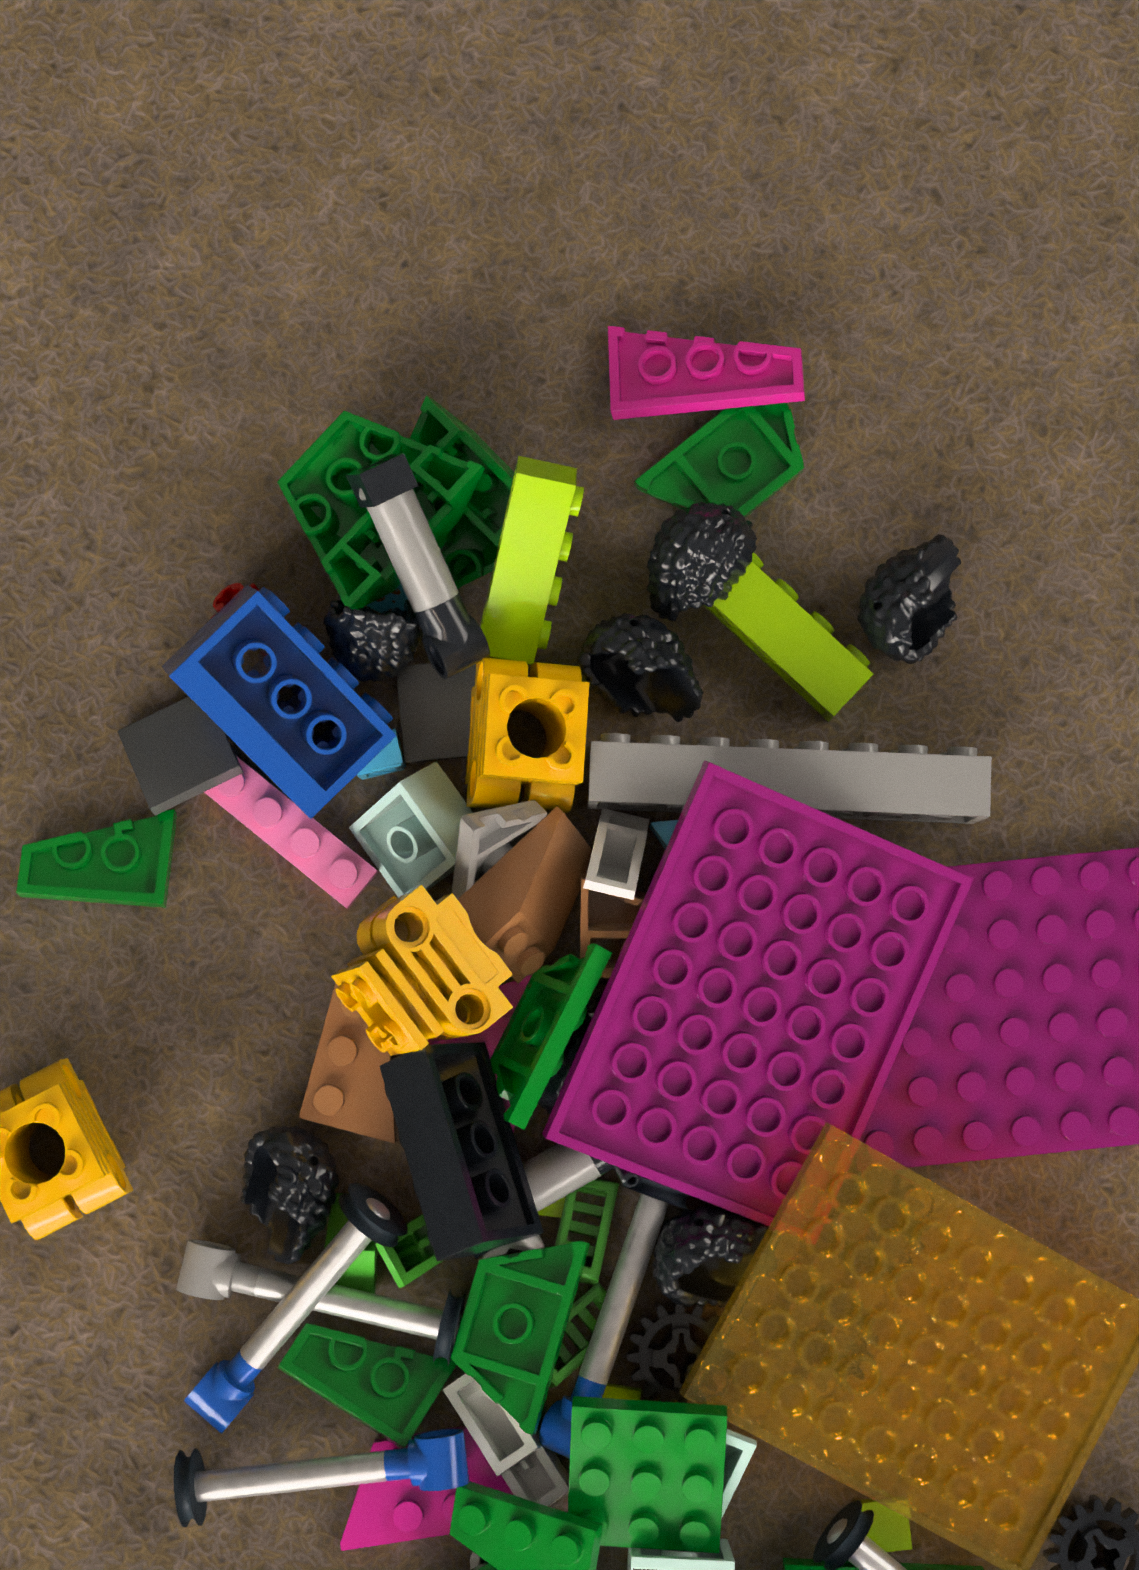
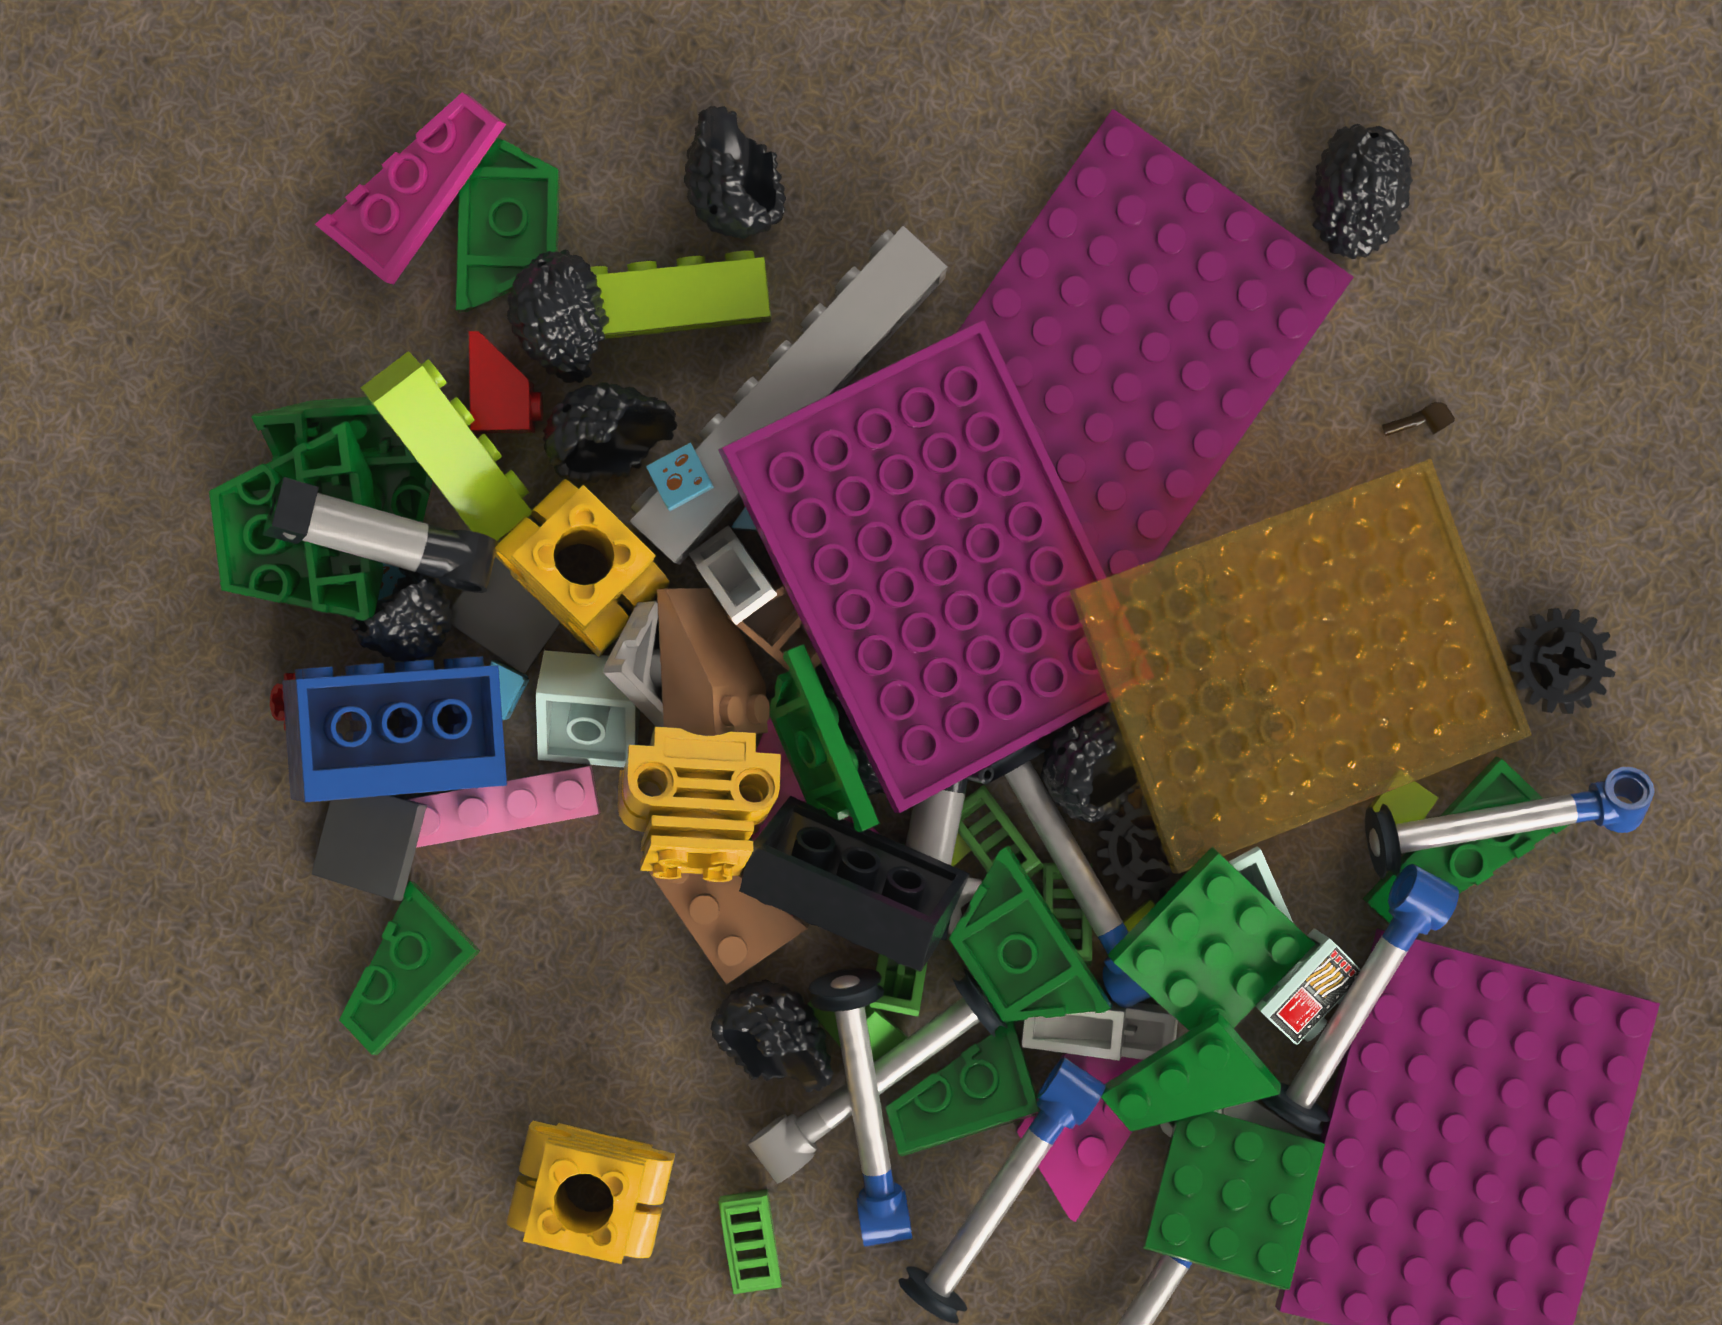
camera: 45 degrees left, 5 degrees up
(136, 1275) = (746, 1203): none -> bright green slope
(601, 564) = (499, 392): none -> red slope
(657, 750) = (680, 477): none -> medium azure slope

